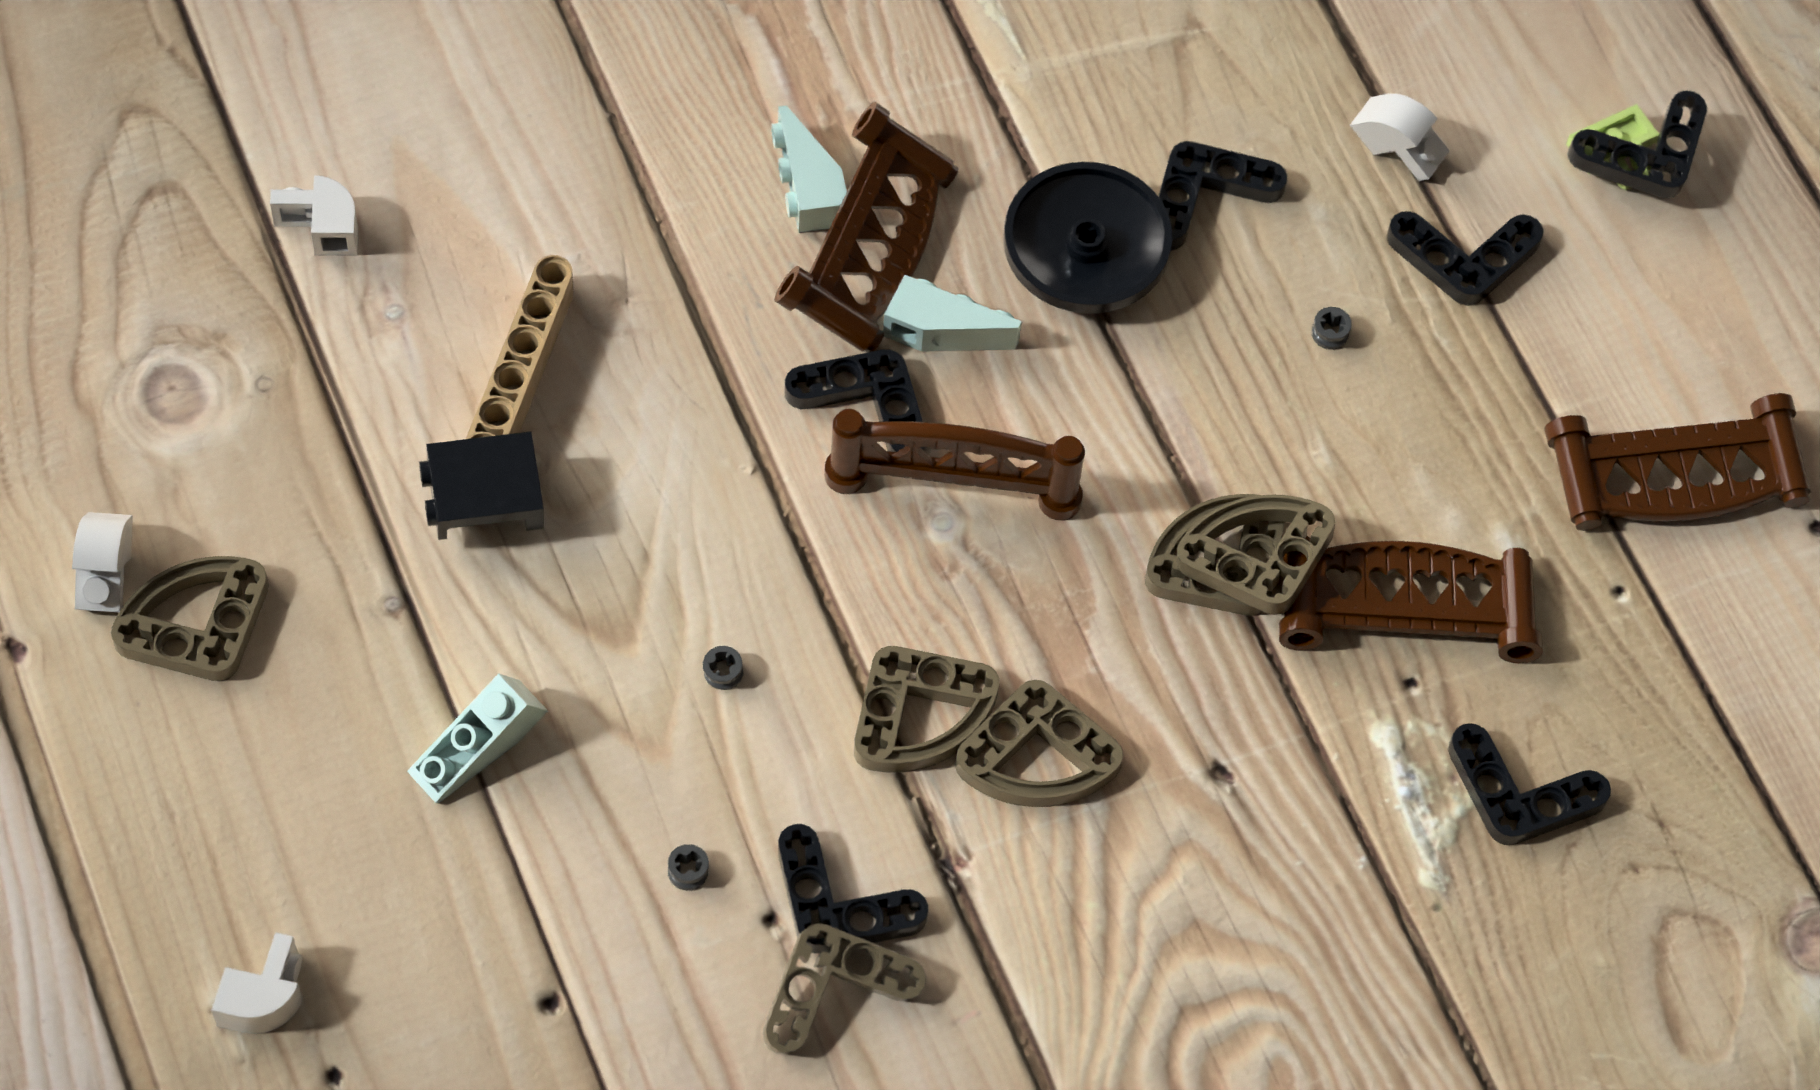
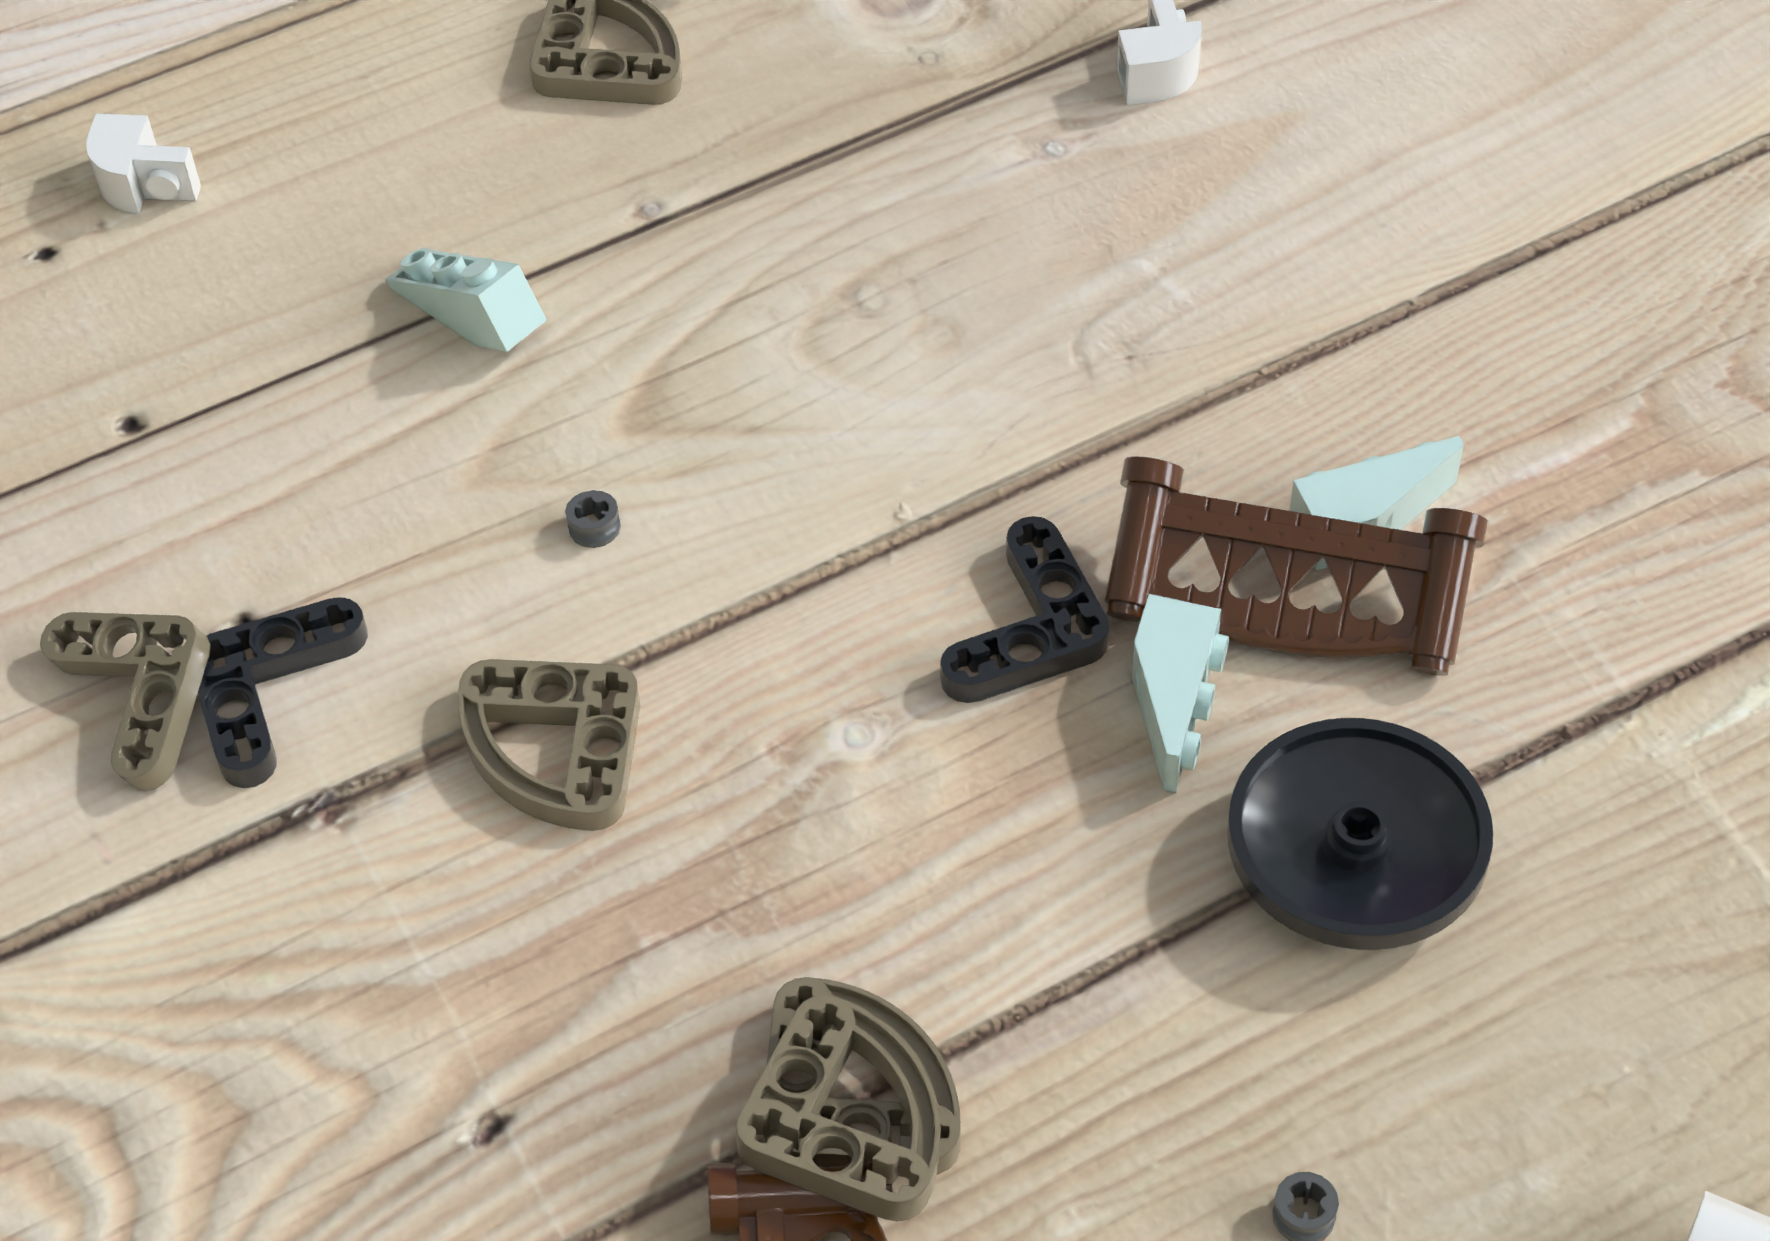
camera: 90 degrees right, 10 degrees down
(482, 482) = (799, 234): black panel -> none
(525, 334) = (959, 251): tan beam -> none
(690, 880) = (300, 507): dark grey bush -> none
(1044, 723) = (542, 881): dark tan beam -> none
(1053, 476) = (912, 612): reddish brown piece -> none
(1193, 177) = (1529, 982): black beam -> none

